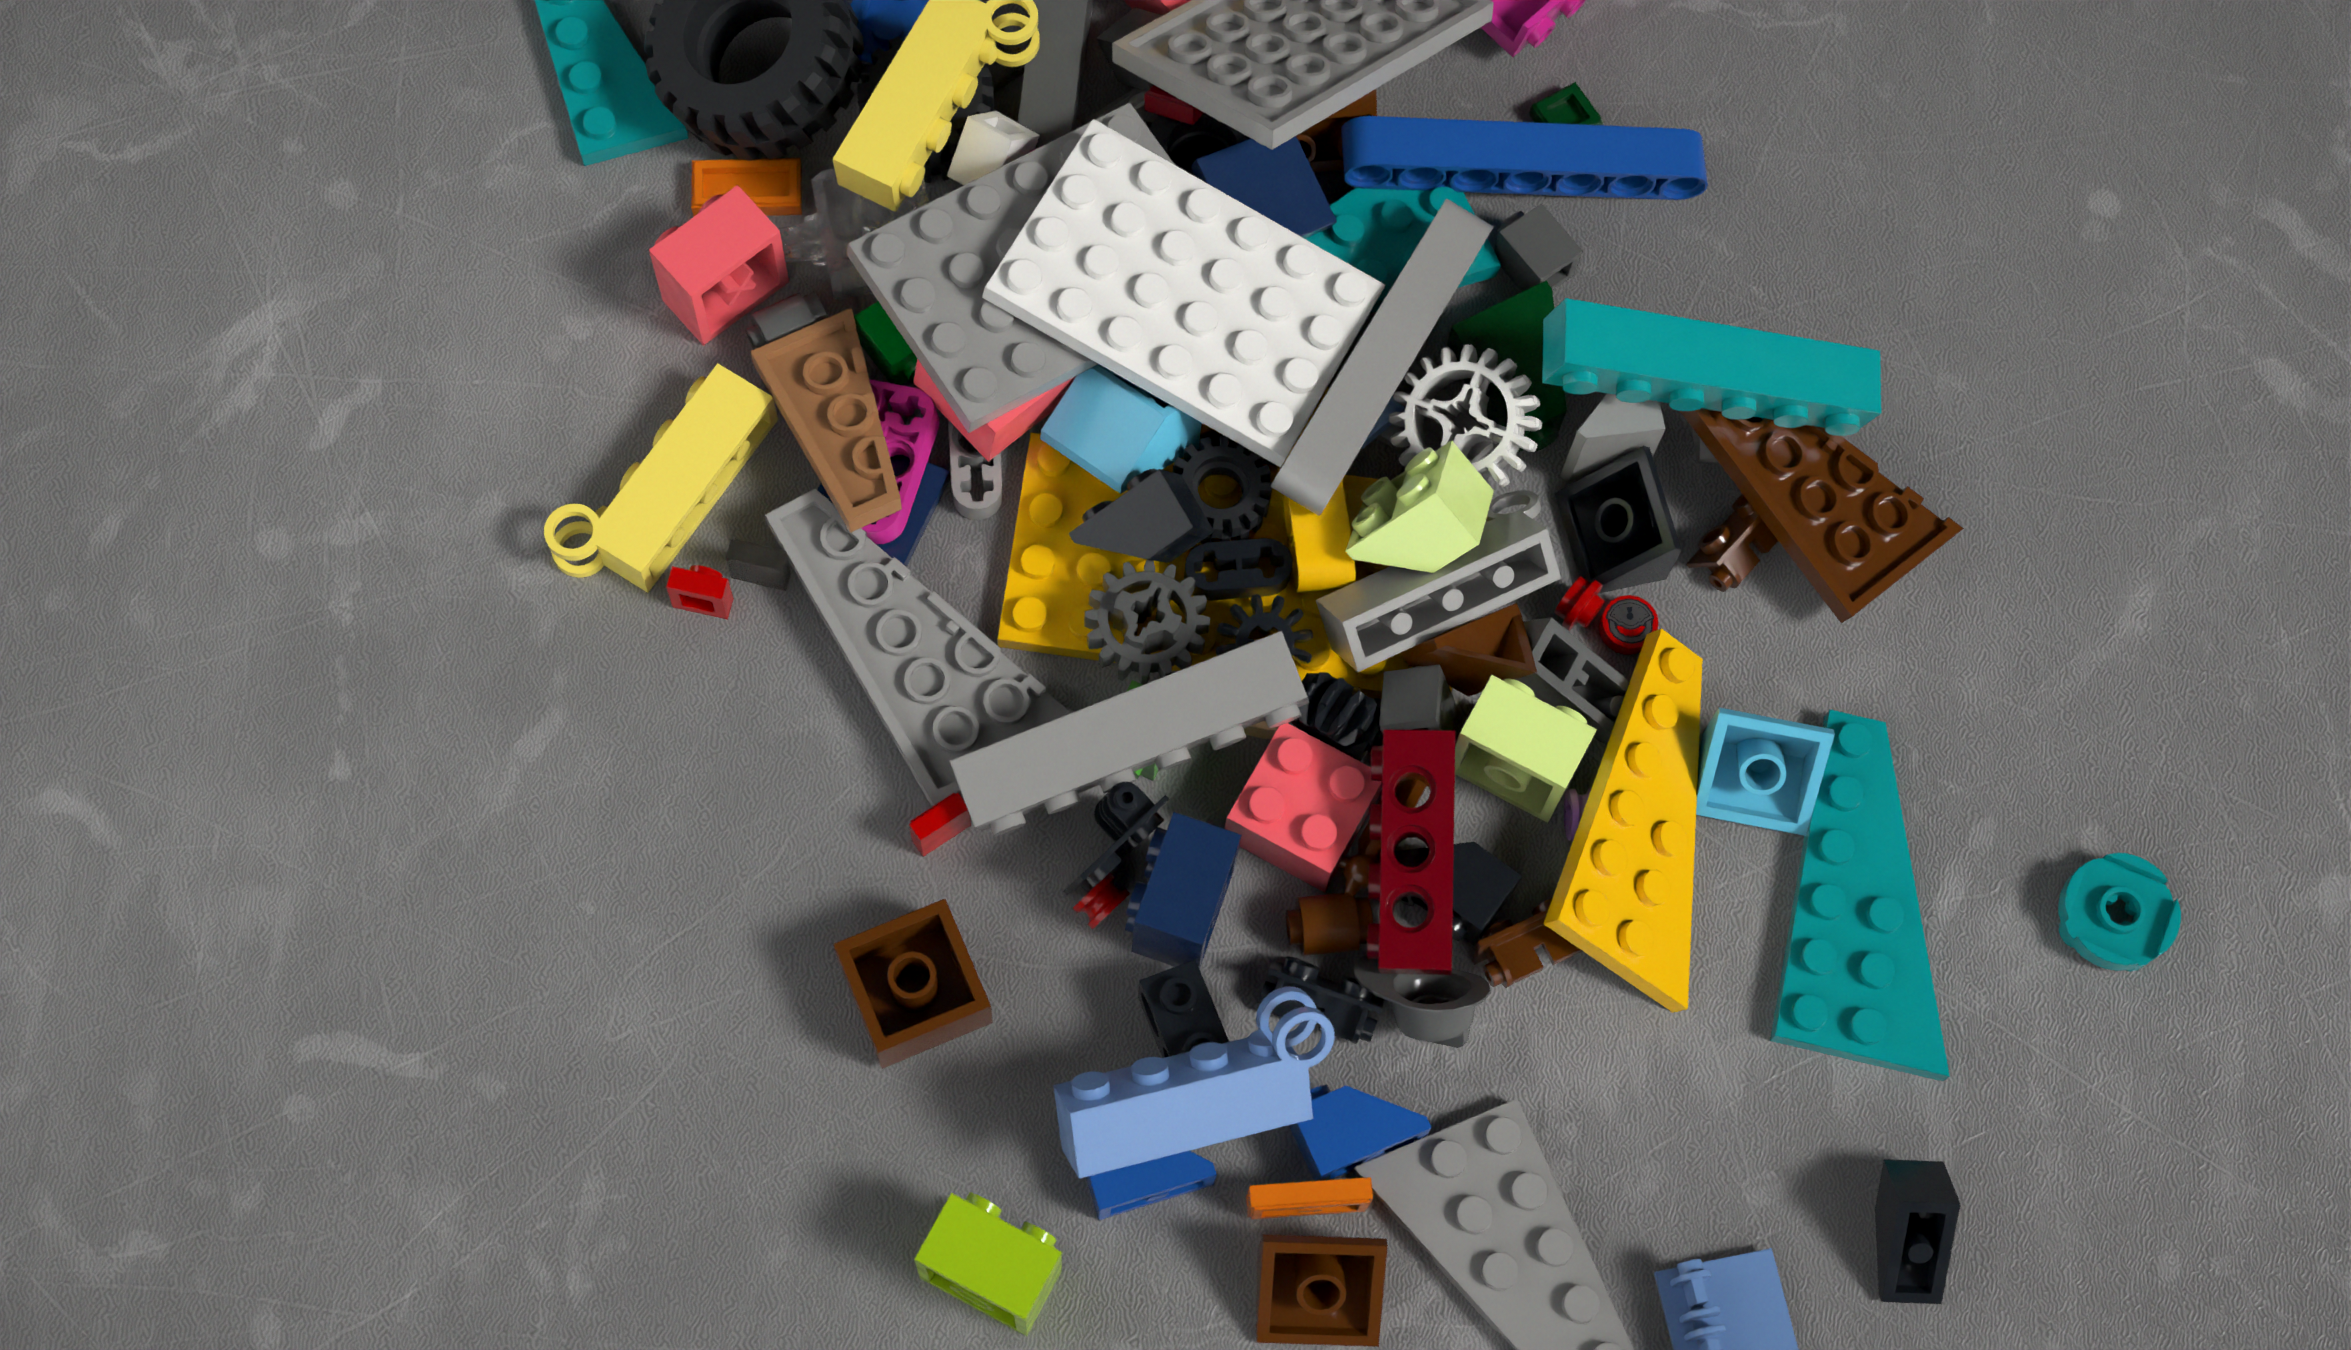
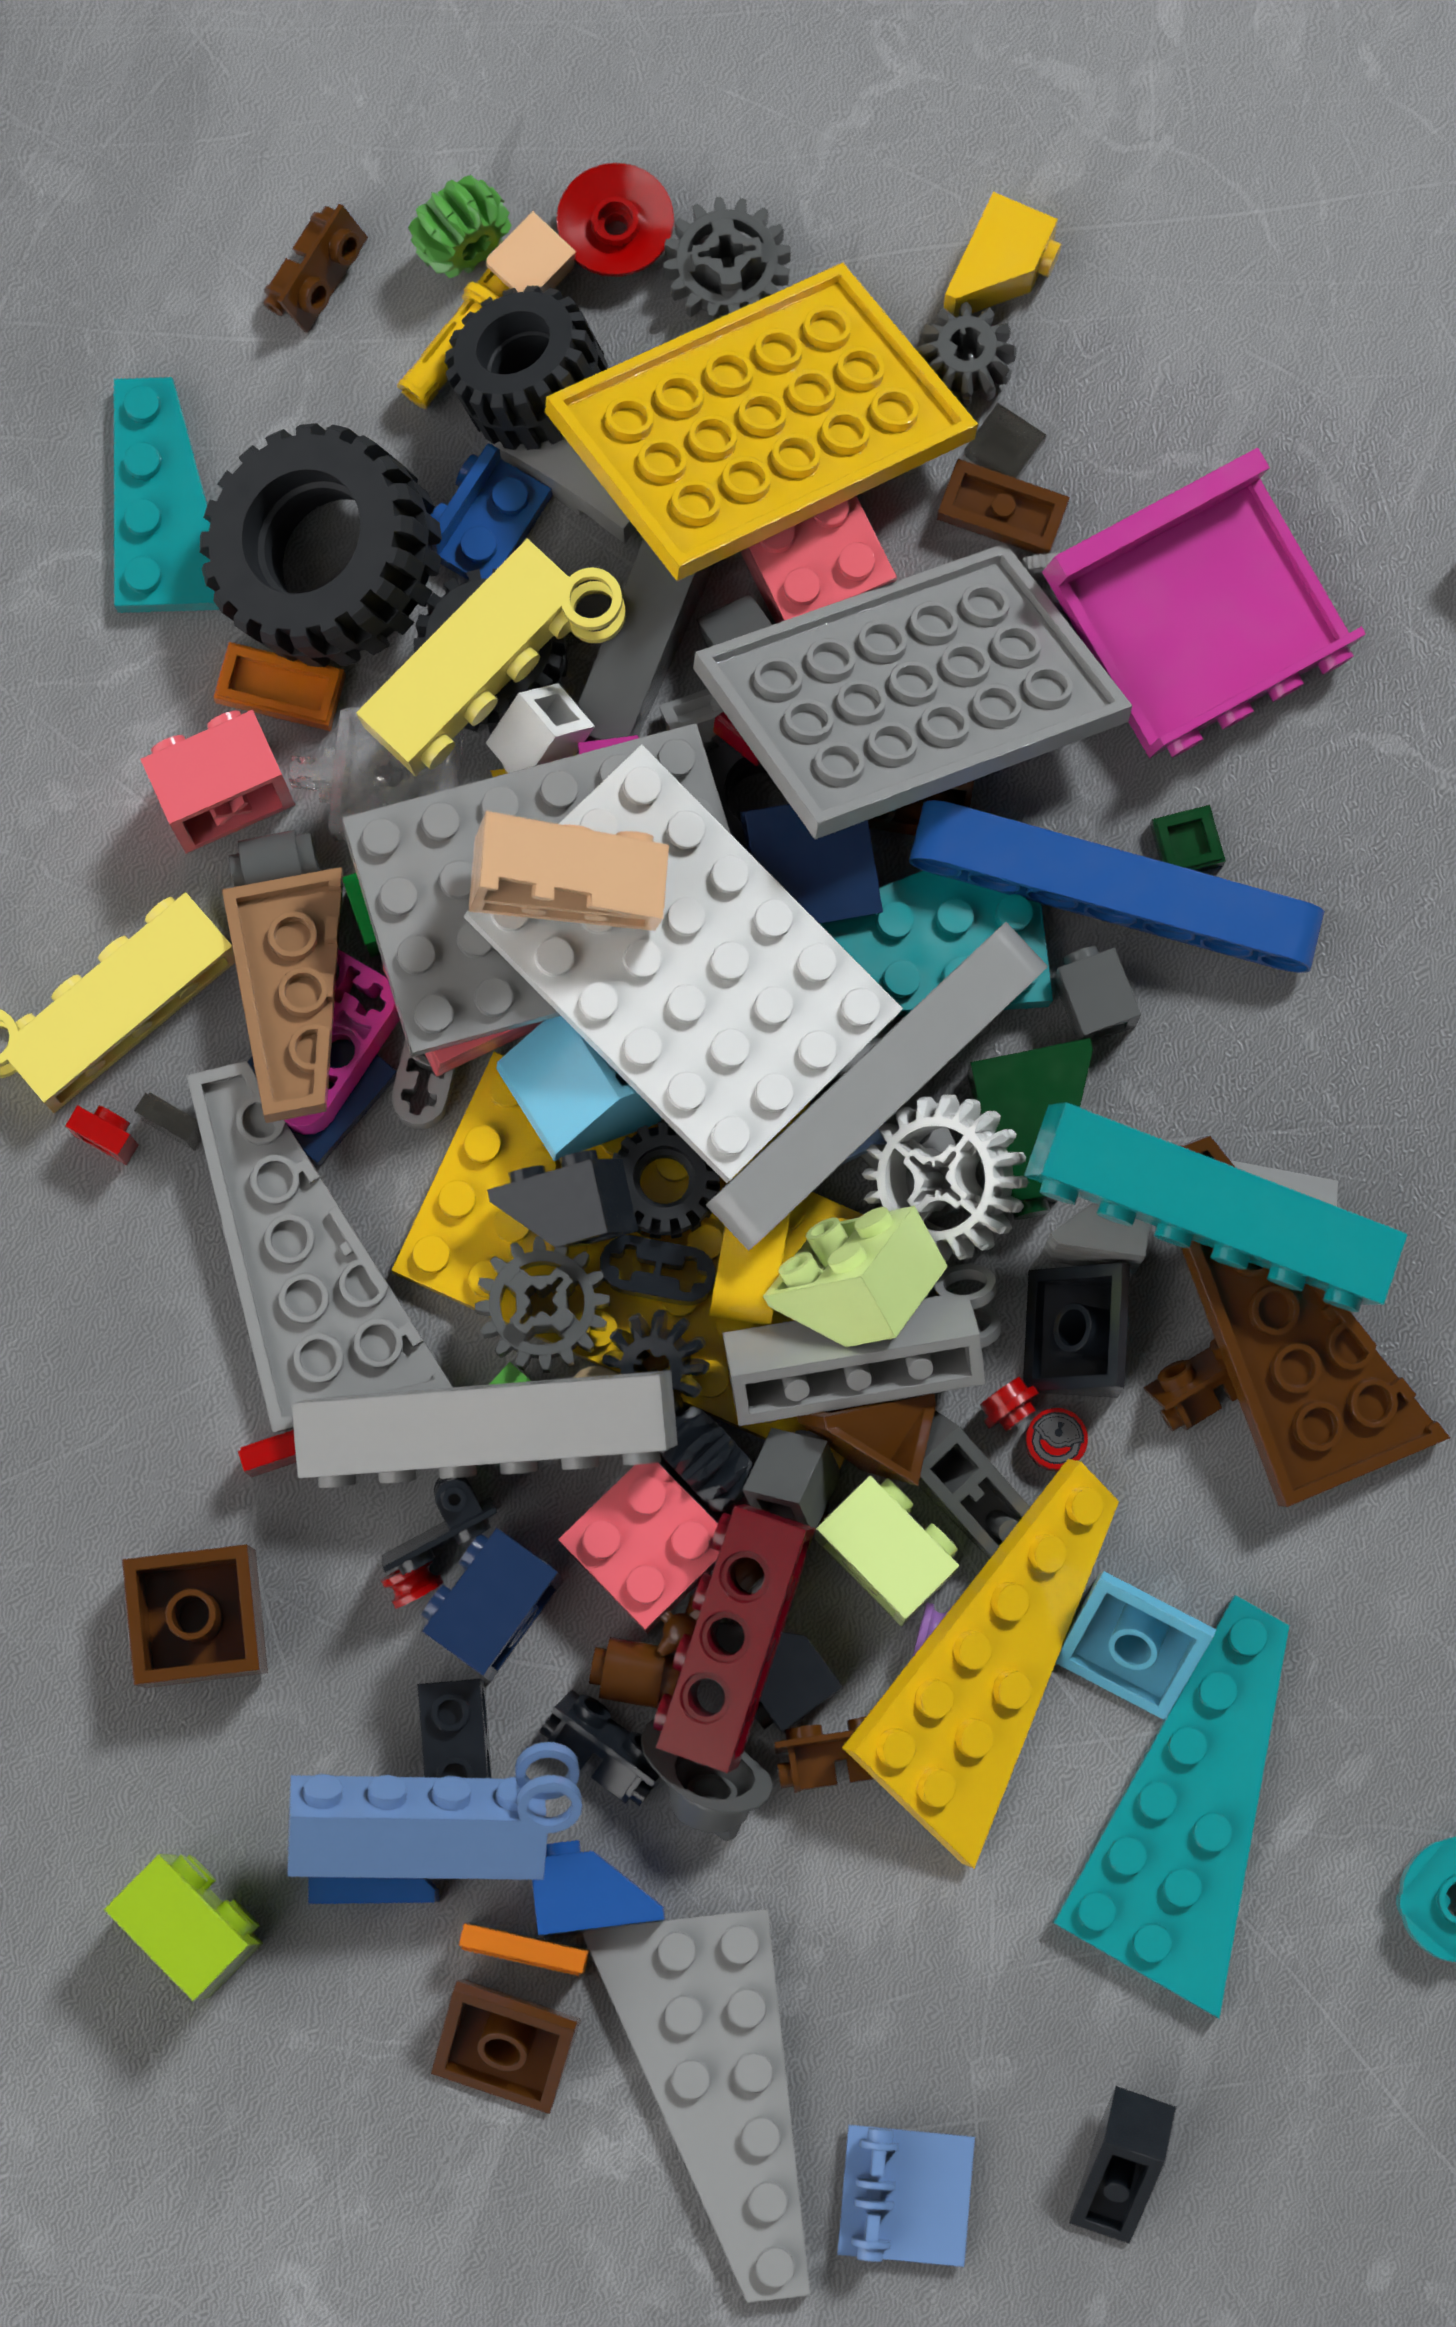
camera: 25 degrees right, 10 degrees up
(1065, 222) = (567, 873): none -> light nougat wedge

